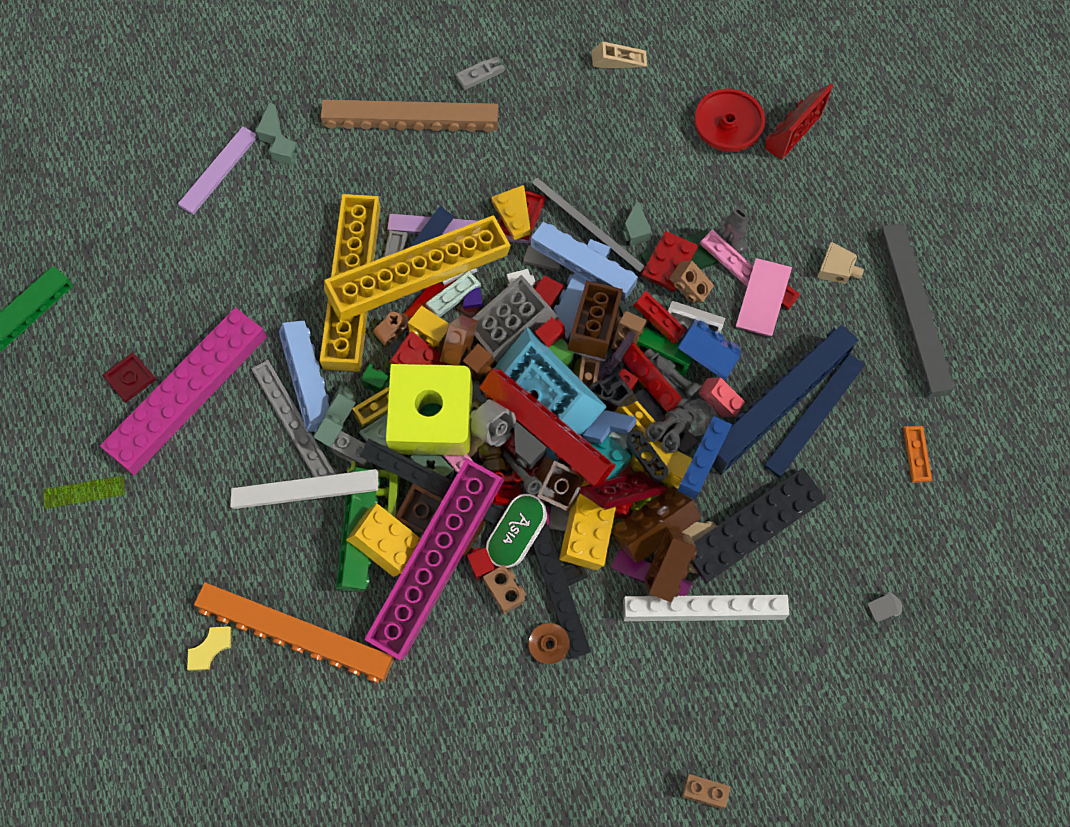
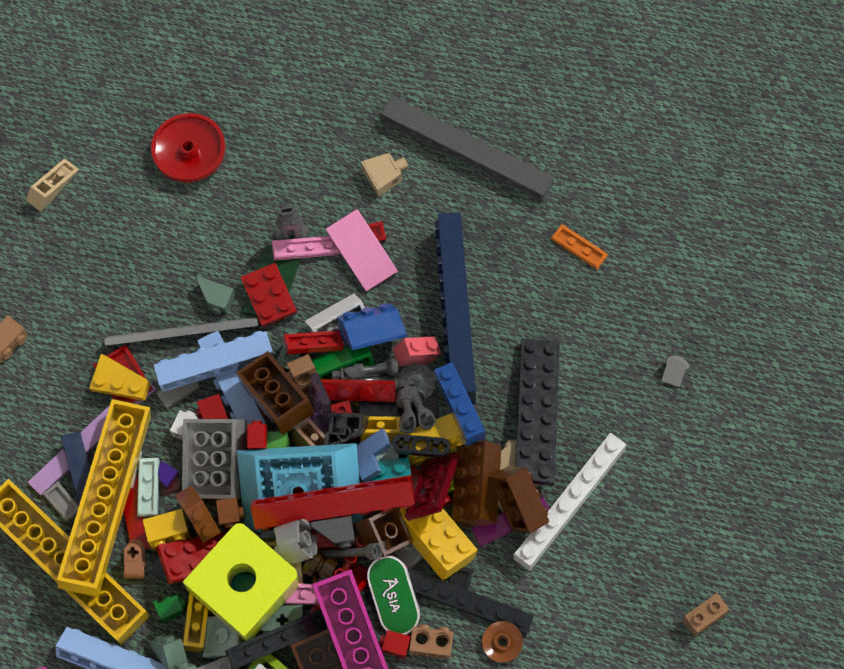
camera: 45 degrees left, 0 degrees up
(691, 281) = (302, 293): medium nougat brick -> none
(798, 122) = (237, 98): red slope -> none
(814, 416) = (487, 294): dark blue tile -> none

